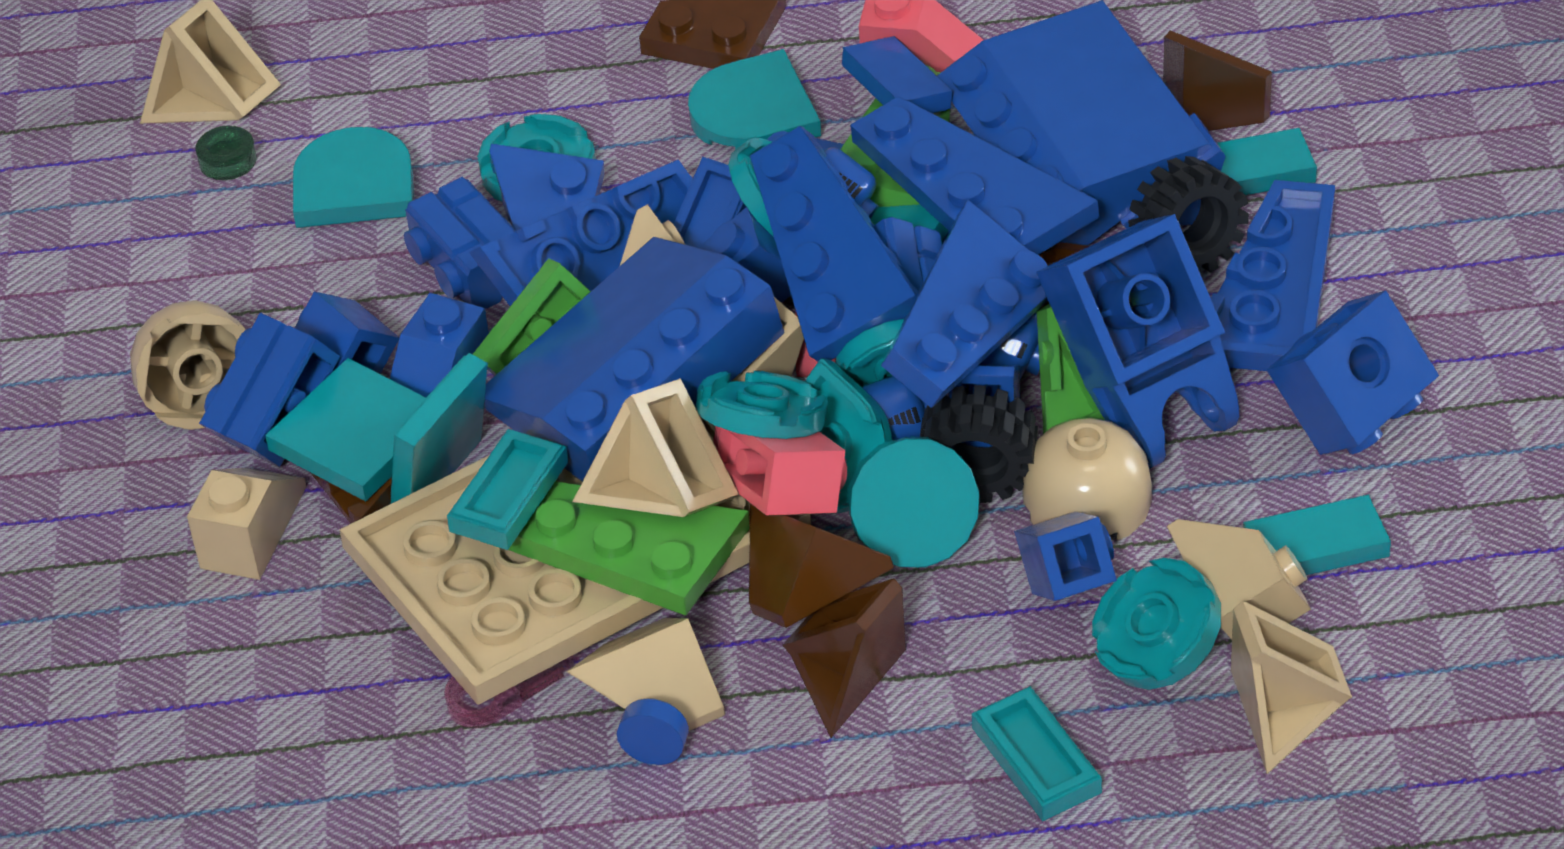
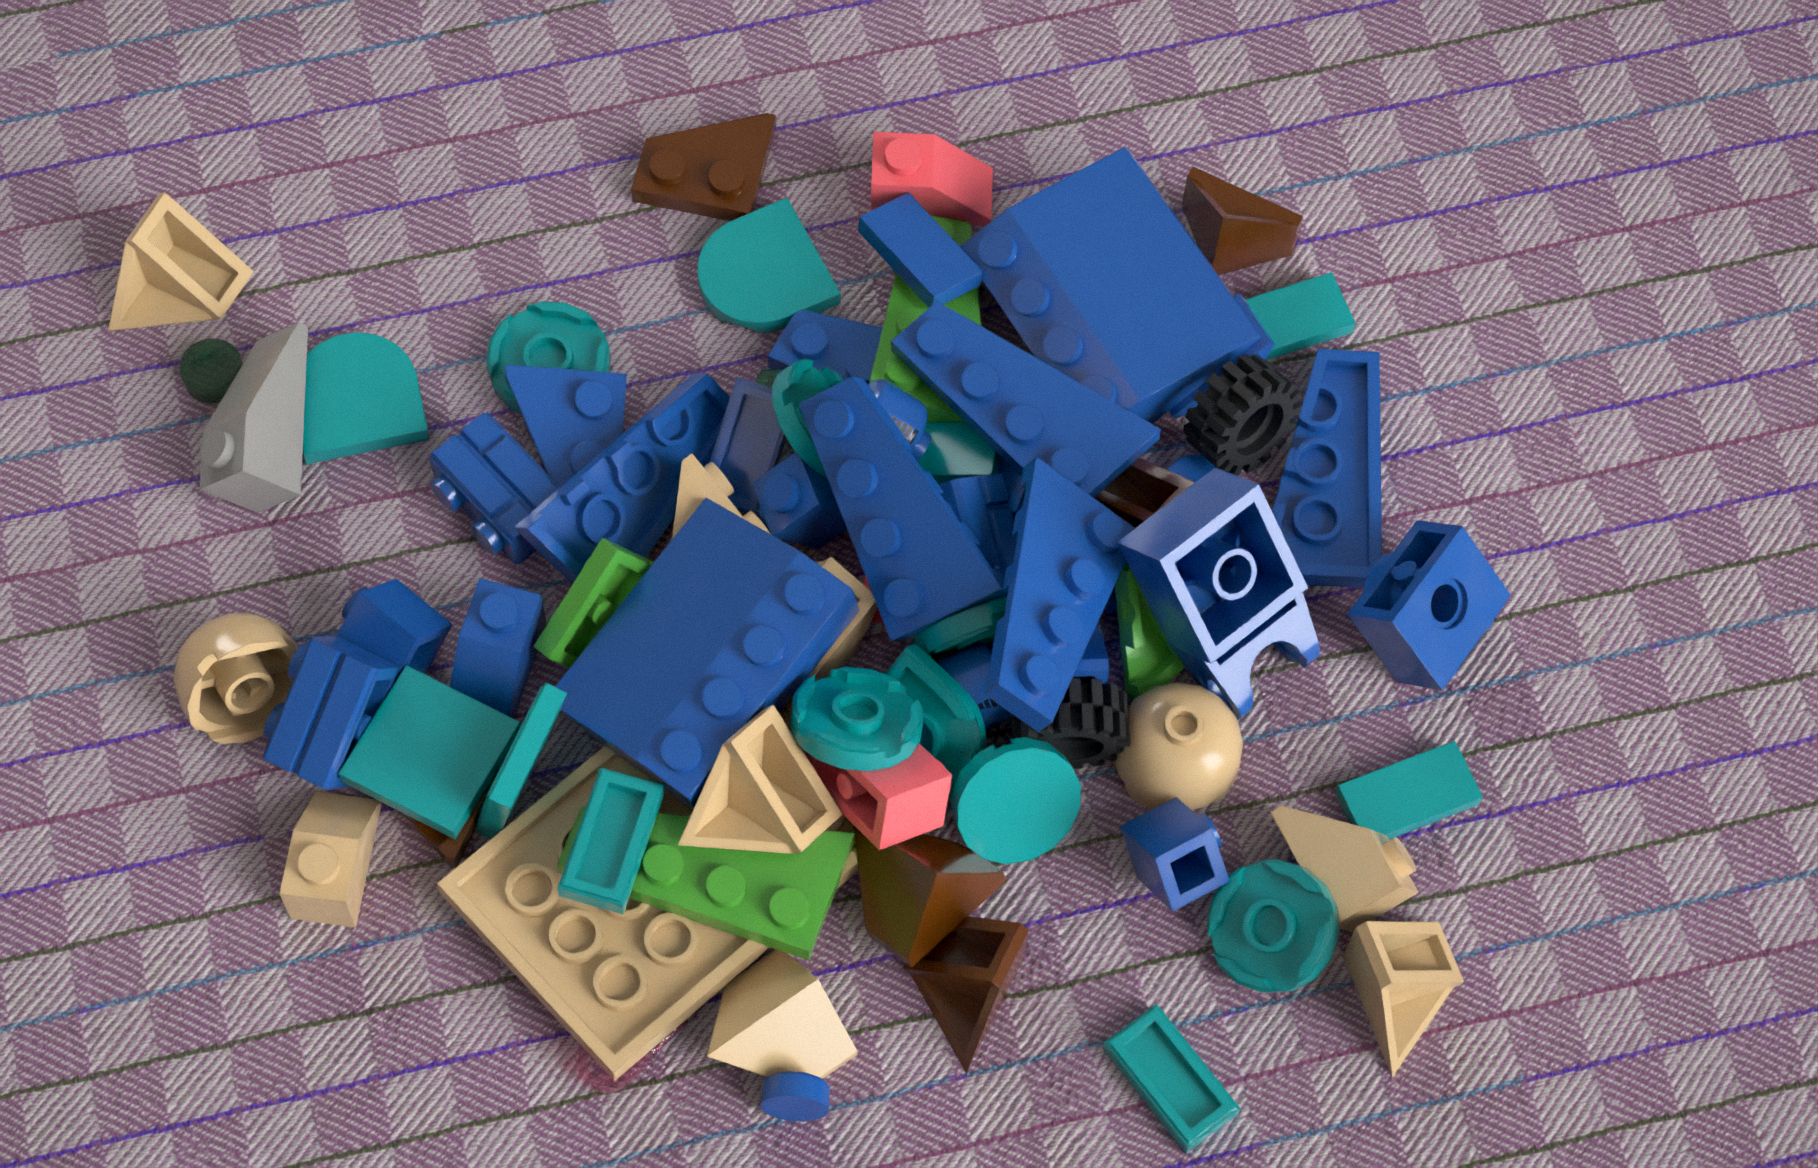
camera: 15 degrees left, 20 degrees up
(251, 194) = (256, 433): none -> light grey slope

